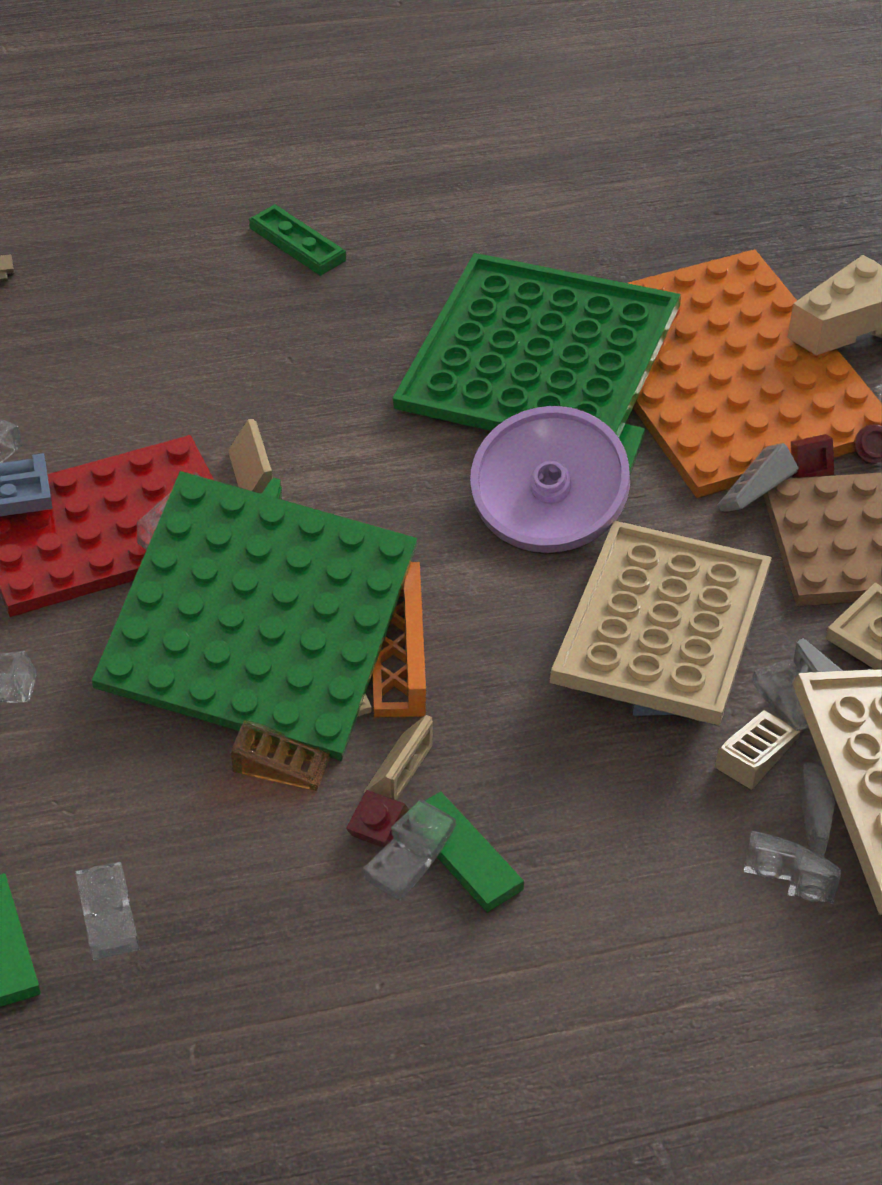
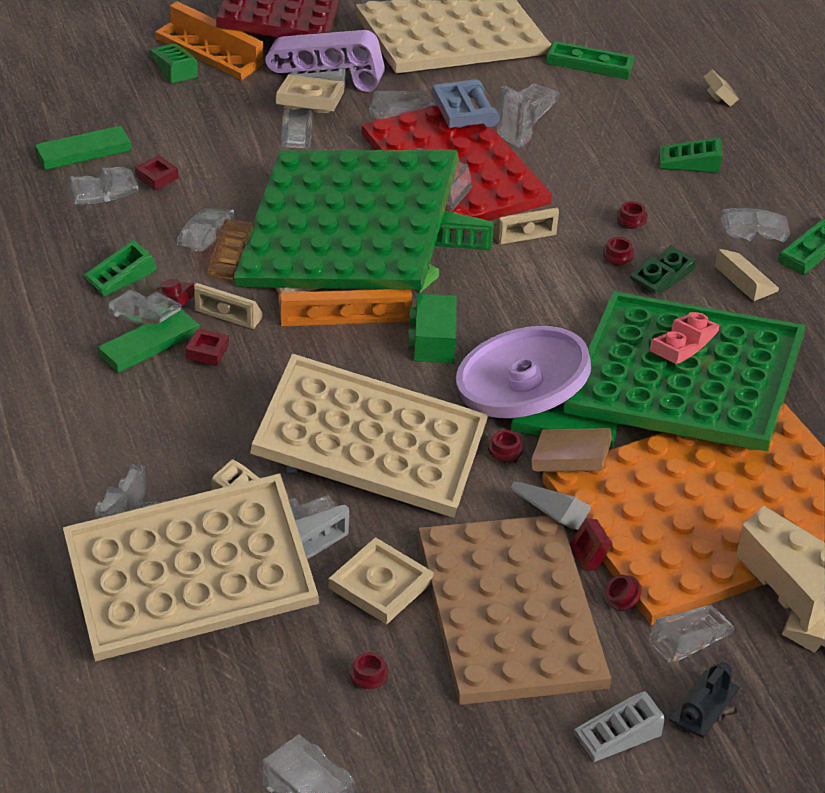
camera: 85 degrees right, 5 degrees down
(47, 435) = (521, 132): none -> clear slope
(89, 839) = (156, 172): none -> dark red plate
(124, 306) = (692, 156): none -> green slope
(233, 779) = (203, 228): none -> clear slope
(238, 372) = (632, 215): none -> dark red plate
(269, 276) = (749, 221): none -> clear slope
(306, 851) = (138, 265): none -> green slope
(307, 390) = (618, 251): none -> dark red plate
(341, 361) = (664, 271): none -> dark green slope
(354, 299) = (744, 275): none -> tan slope
(457, 556) = (435, 328): none -> green brick
(487, 782) = (207, 347): none -> dark red plate
(500, 338) = (686, 338): none -> coral slope
(655, 514) = (505, 446): none -> dark red plate
(673, 455) = (571, 450): none -> medium nougat tile

